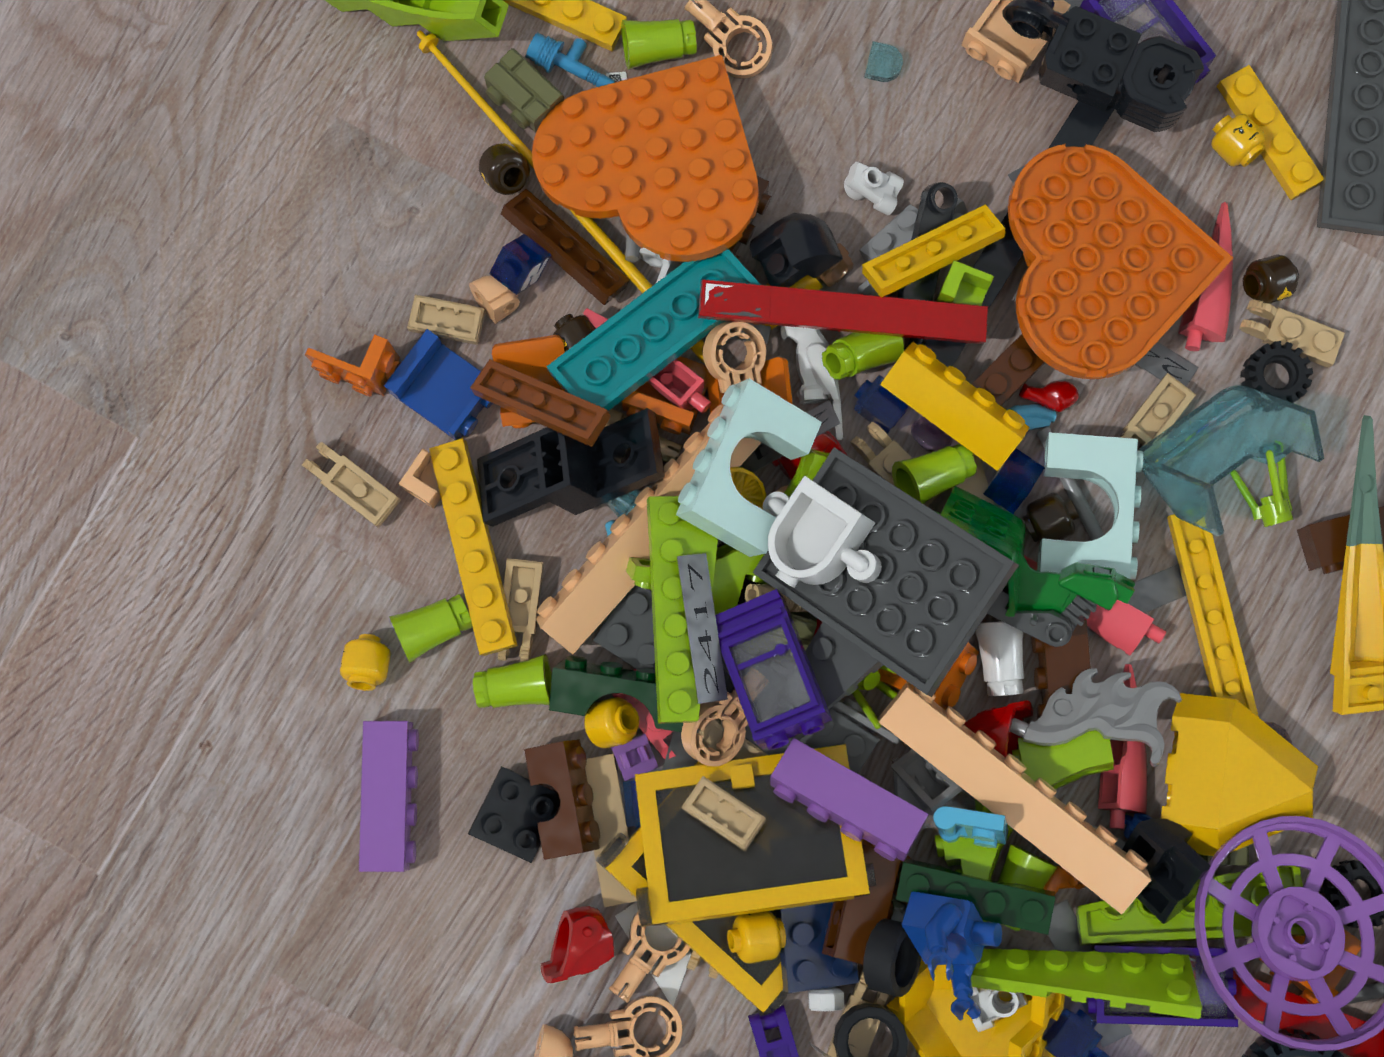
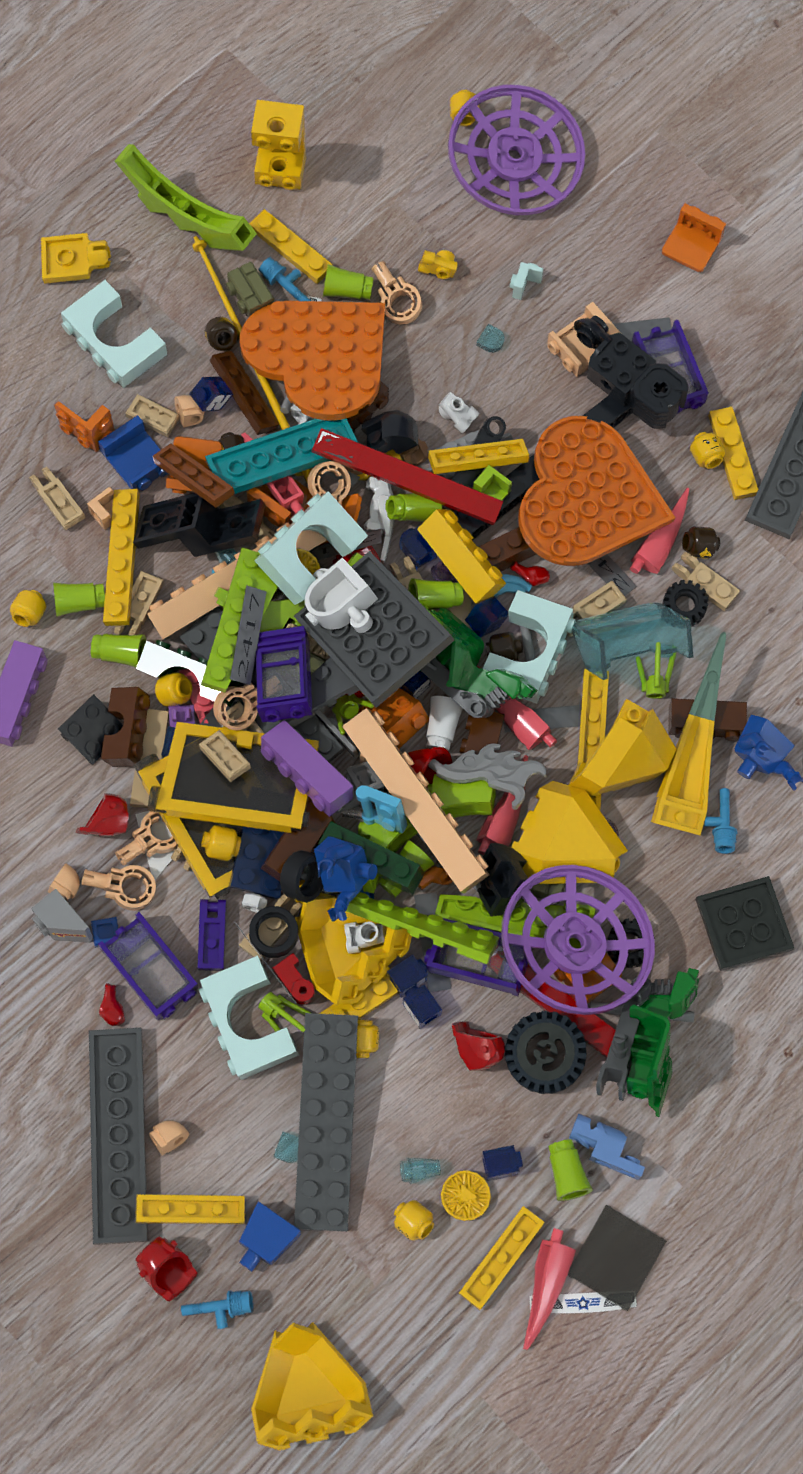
camera: 15 degrees right, 10 degrees down
(253, 115) = (72, 257): none -> yellow plate
(378, 253) = (121, 362): none -> light aqua arch
(1303, 626) = (630, 754): none -> yellow panel

